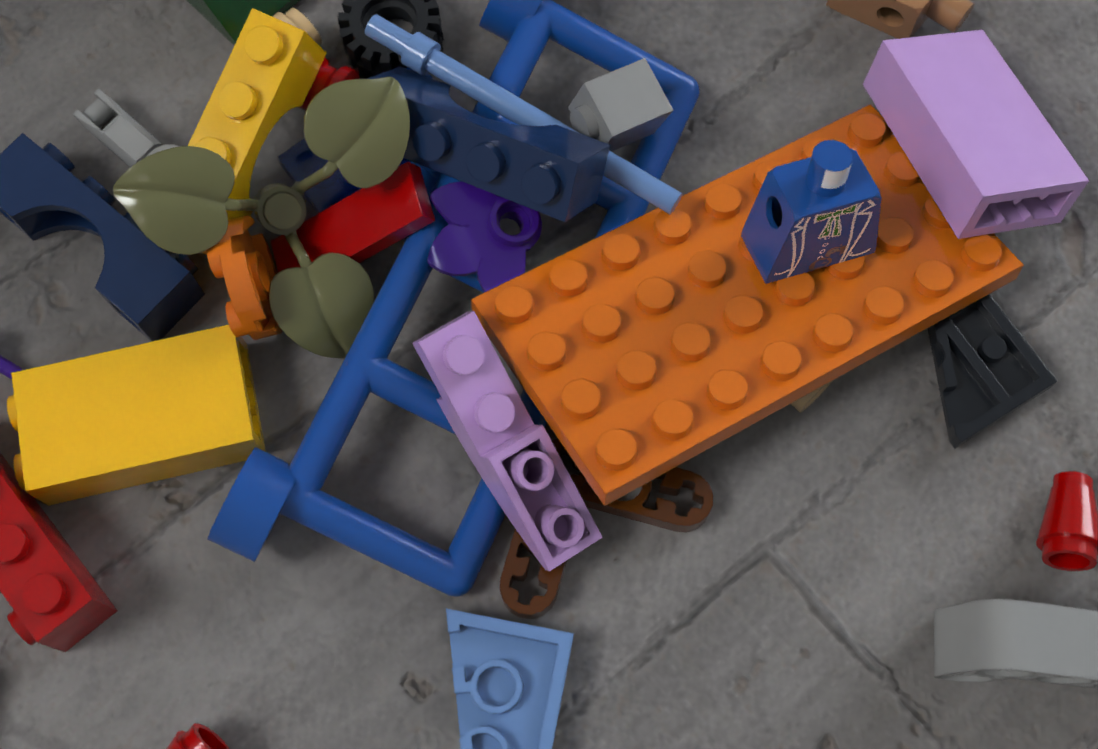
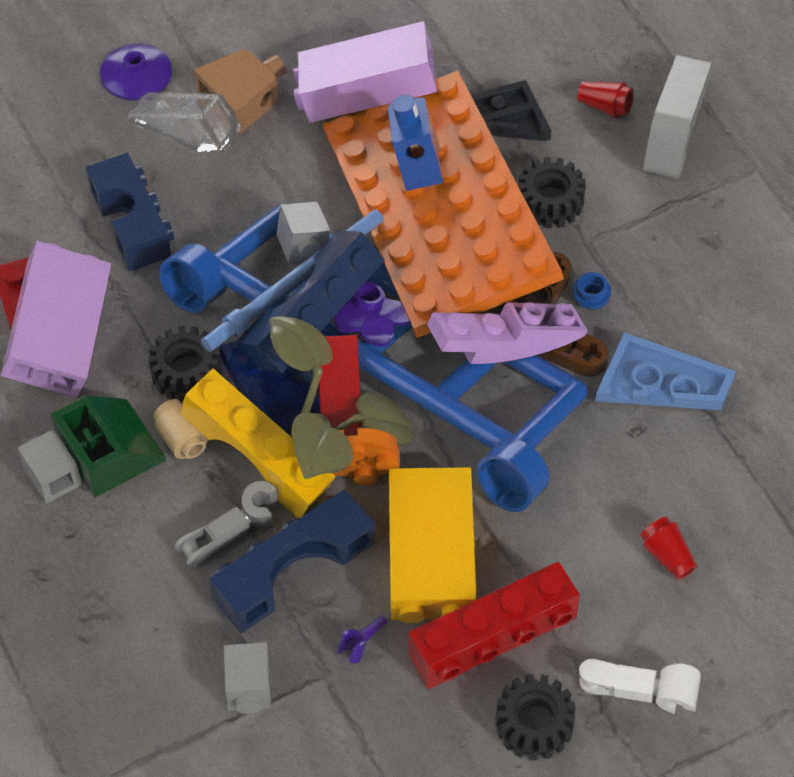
camera: 80 degrees left, 15 degrees down
(656, 549) = (594, 283): none -> blue plate
(853, 435) = (555, 176): none -> black tyre

